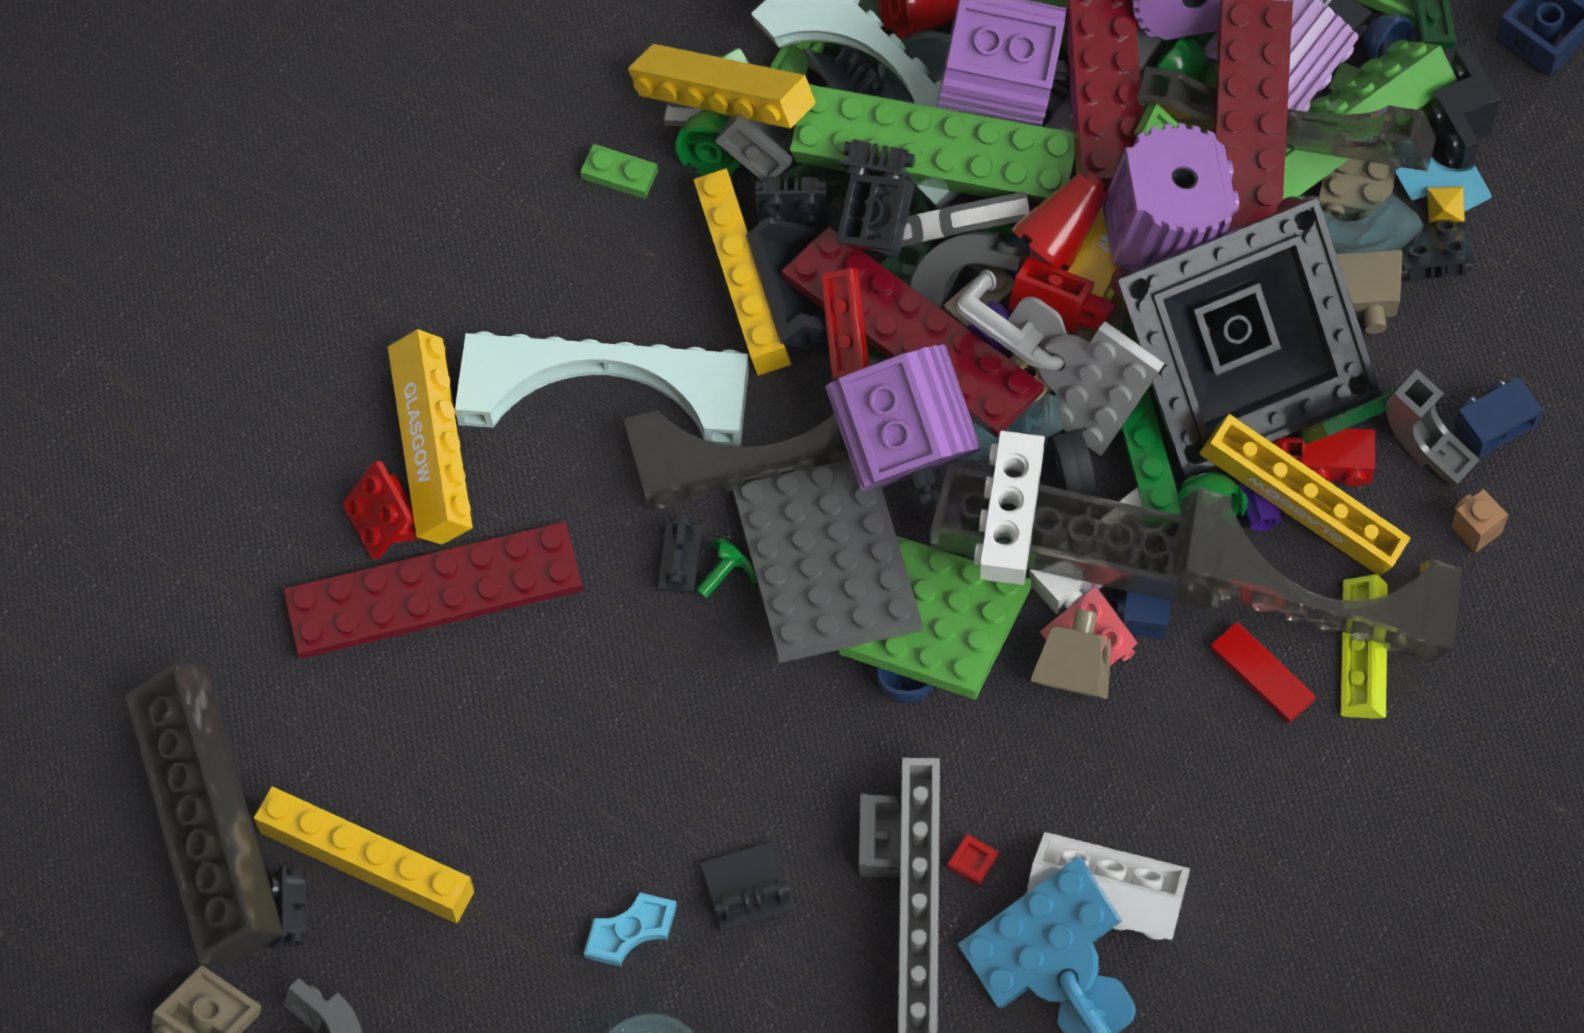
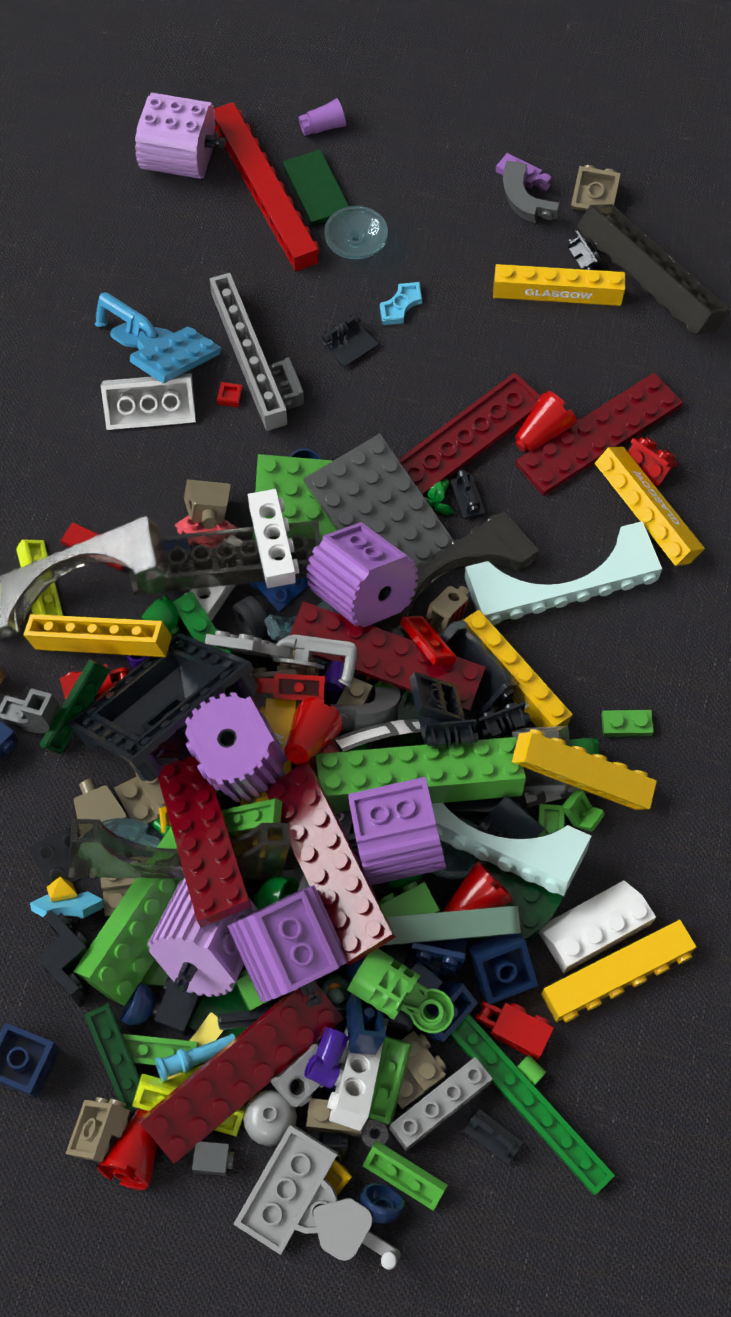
camera: 155 degrees right, 0 degrees up
(513, 616) = (544, 422): none -> red cone
(633, 650) = (470, 433): none -> dark red plate
(791, 382) = (450, 605): none -> dark tan torso

